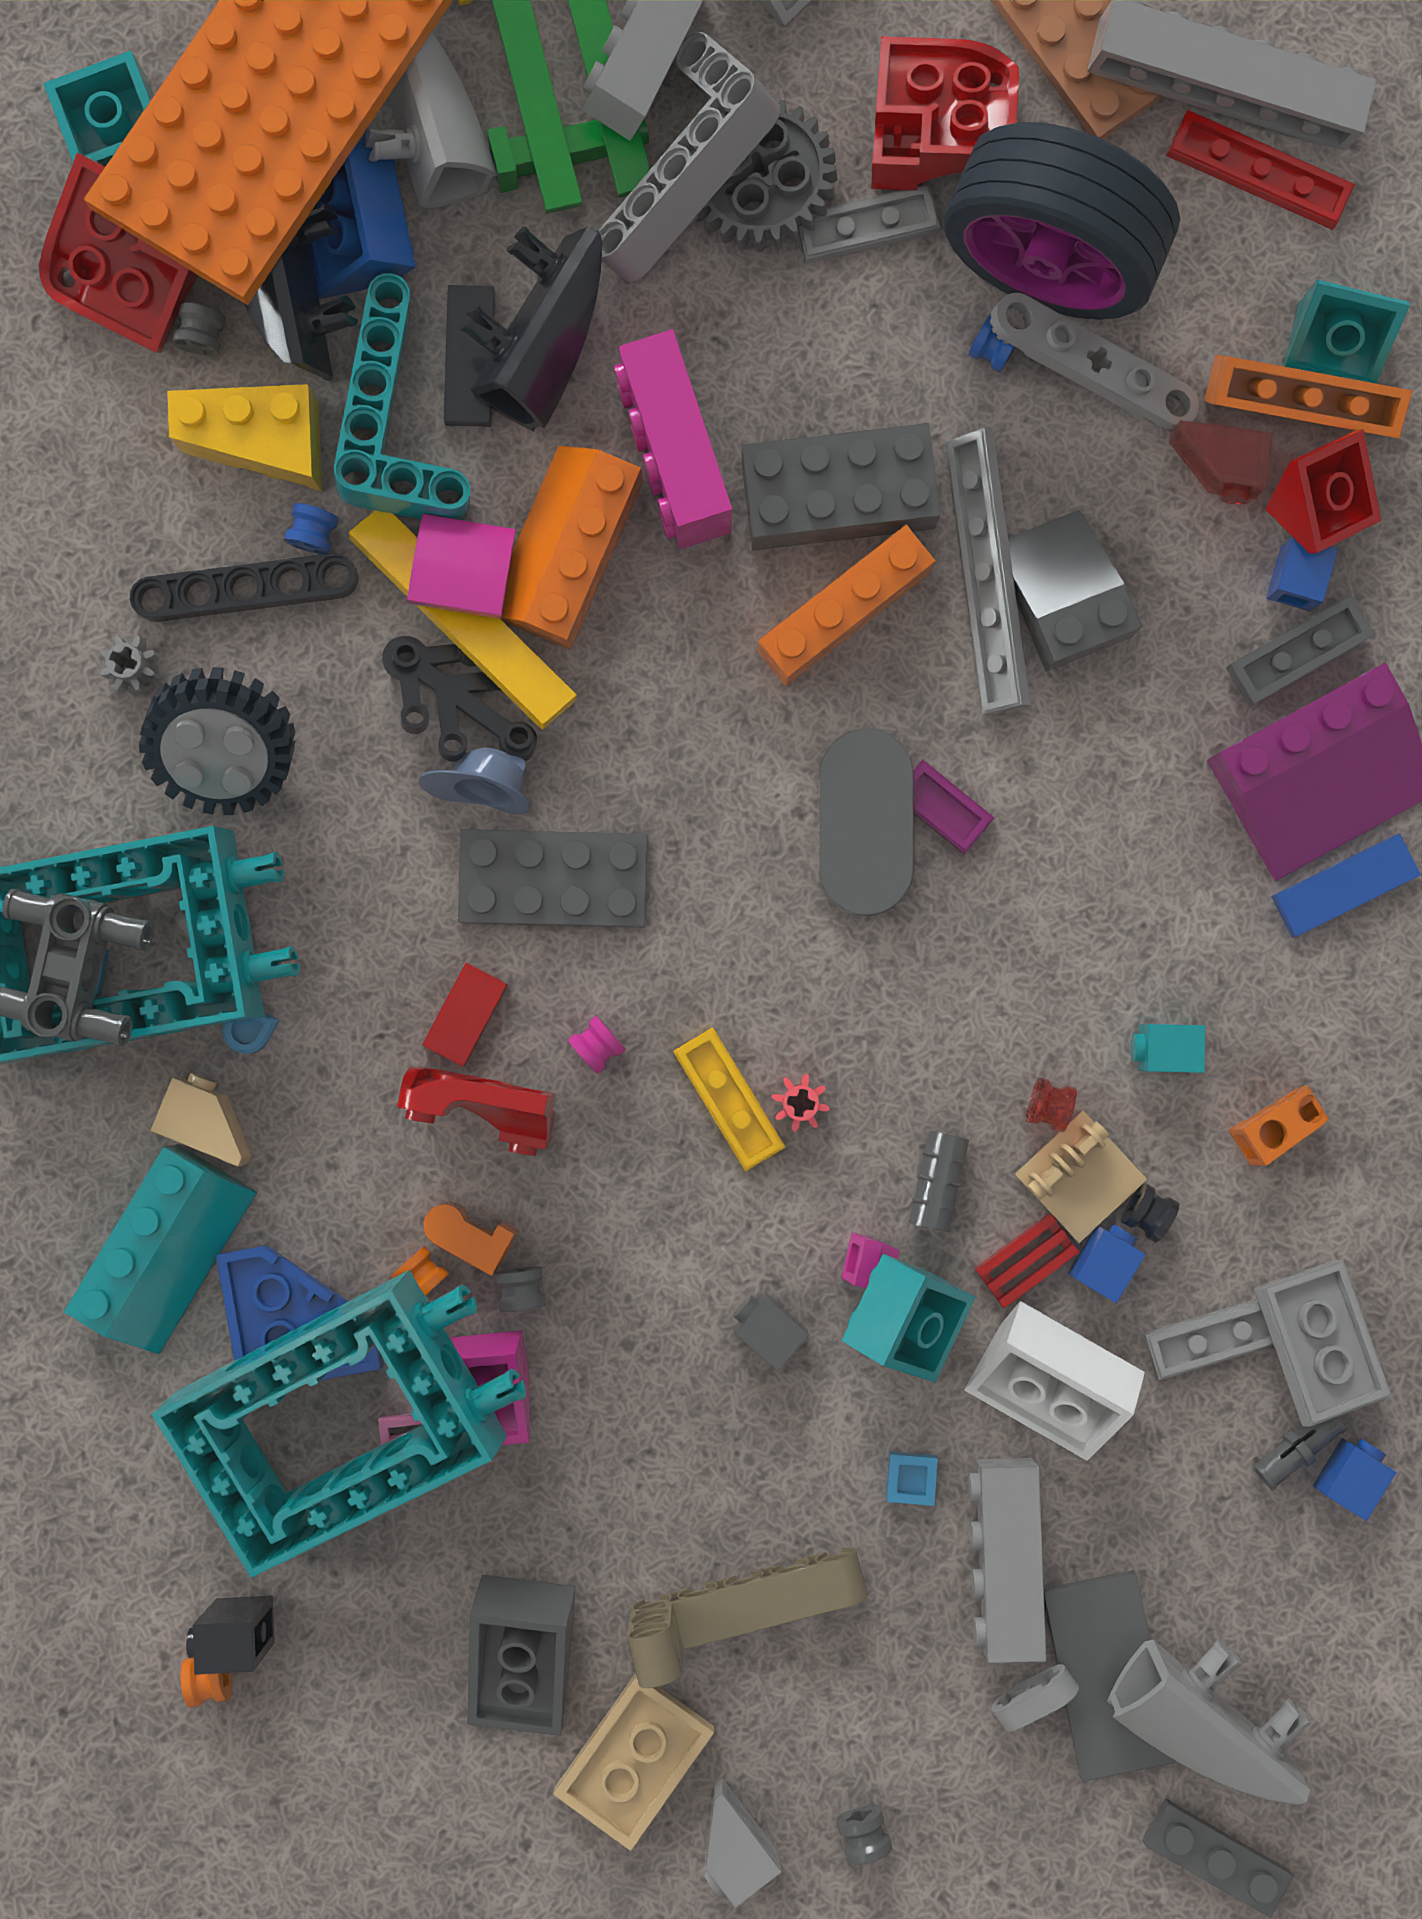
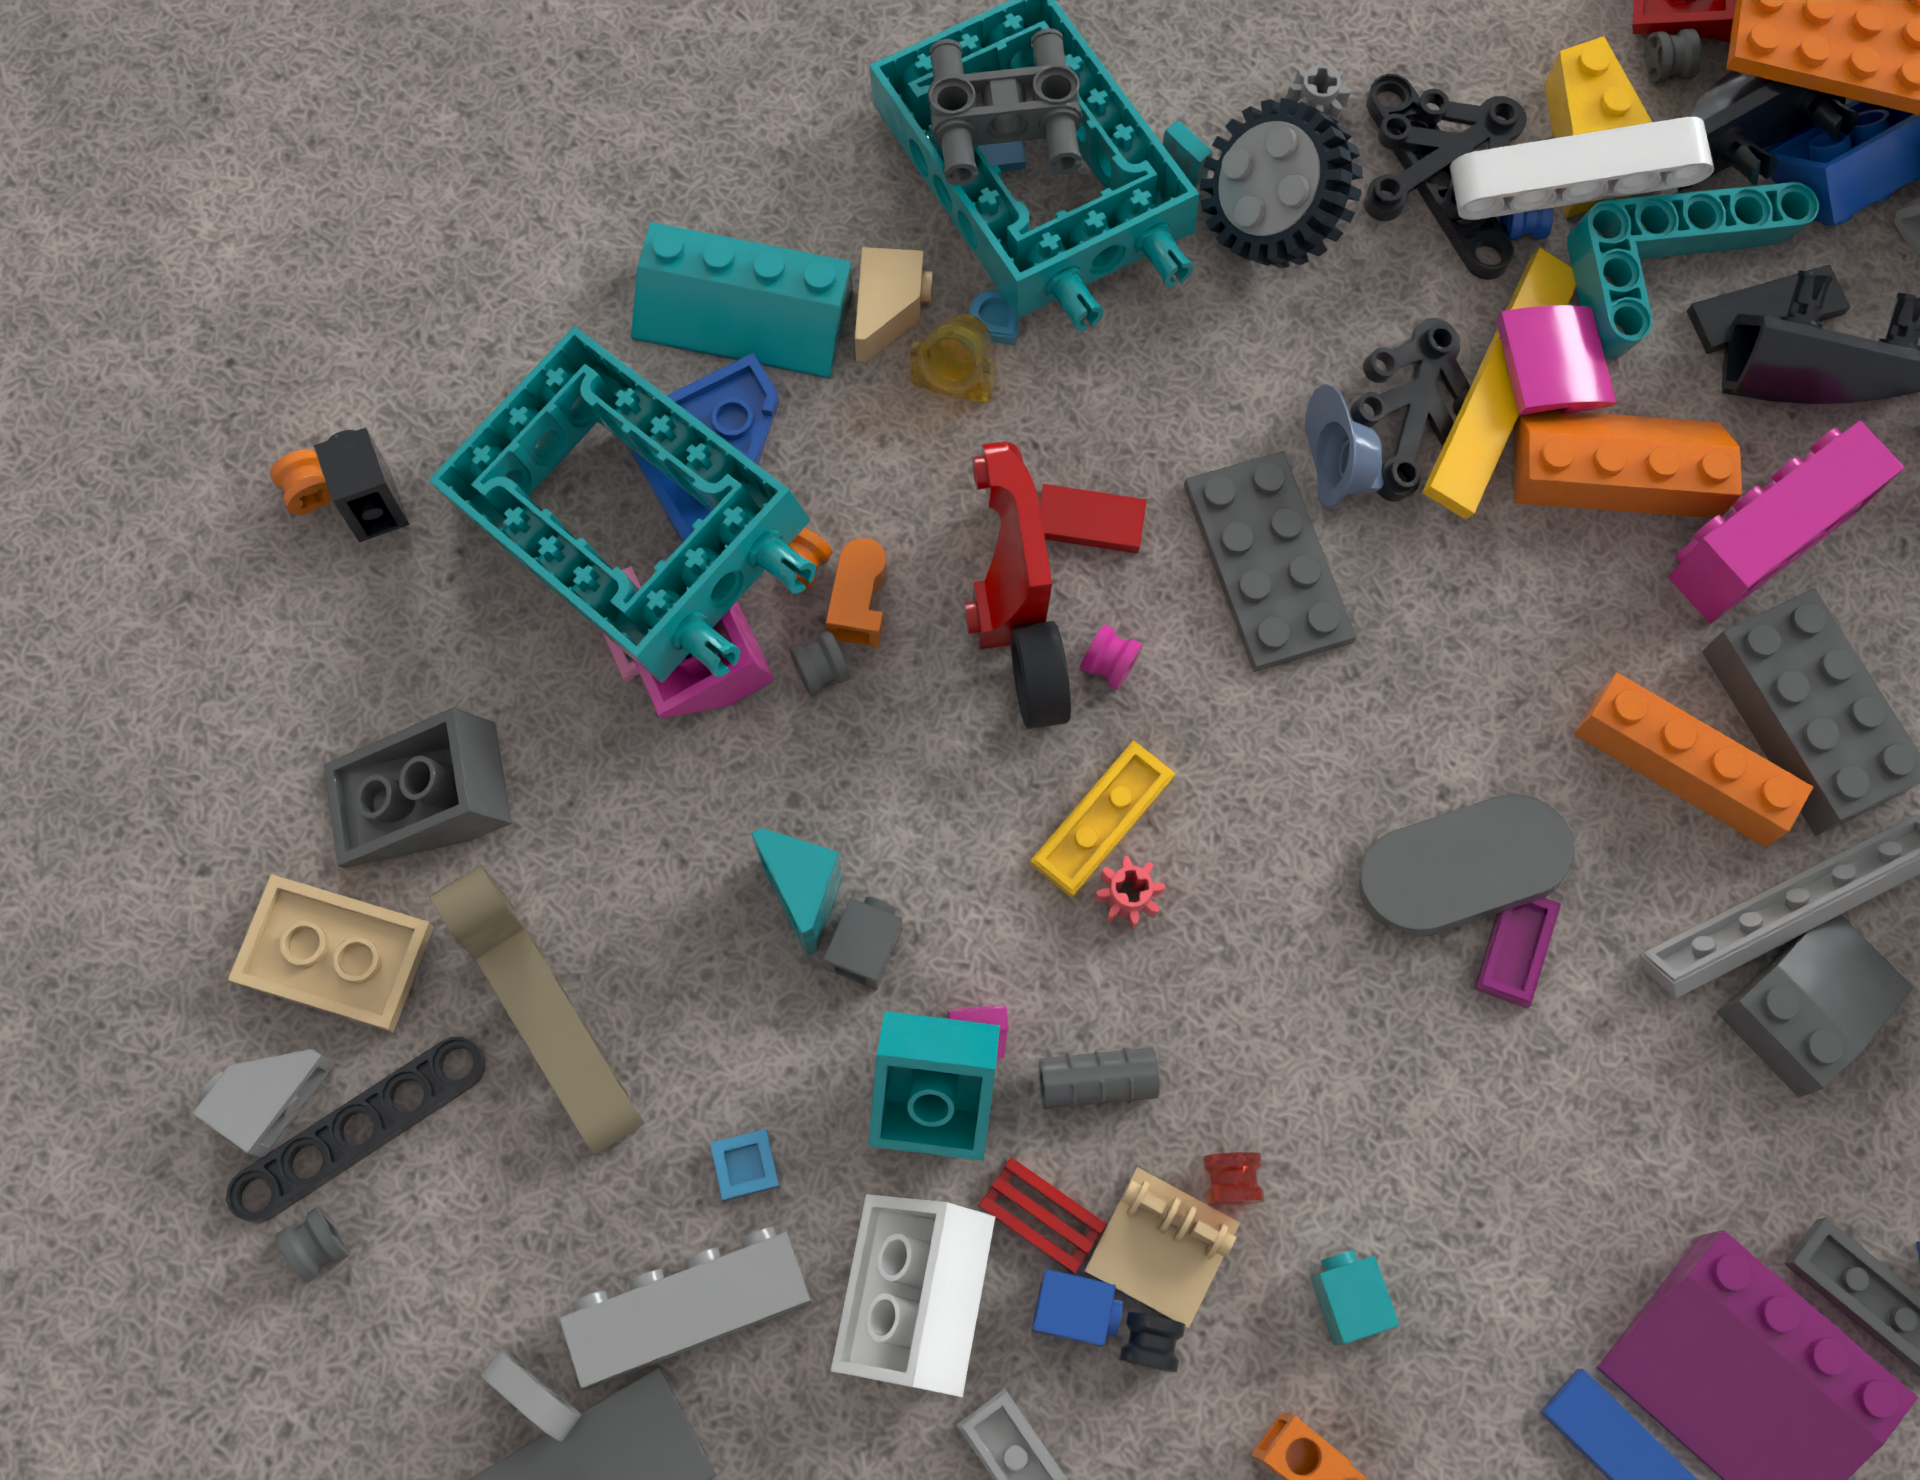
camera: 65 degrees right, 15 degrees down
(147, 805) = (1187, 151): none -> teal tile
(227, 568) = (1444, 144): none -> black plant
(280, 1081) = (955, 359): none -> clear yellow piece
(298, 474) = (1581, 168): none -> white beam
(598, 1113) = (1040, 674): none -> black tyre
(712, 1371) = (803, 880): none -> teal slope
(792, 1796) = (329, 1137): none -> black beam

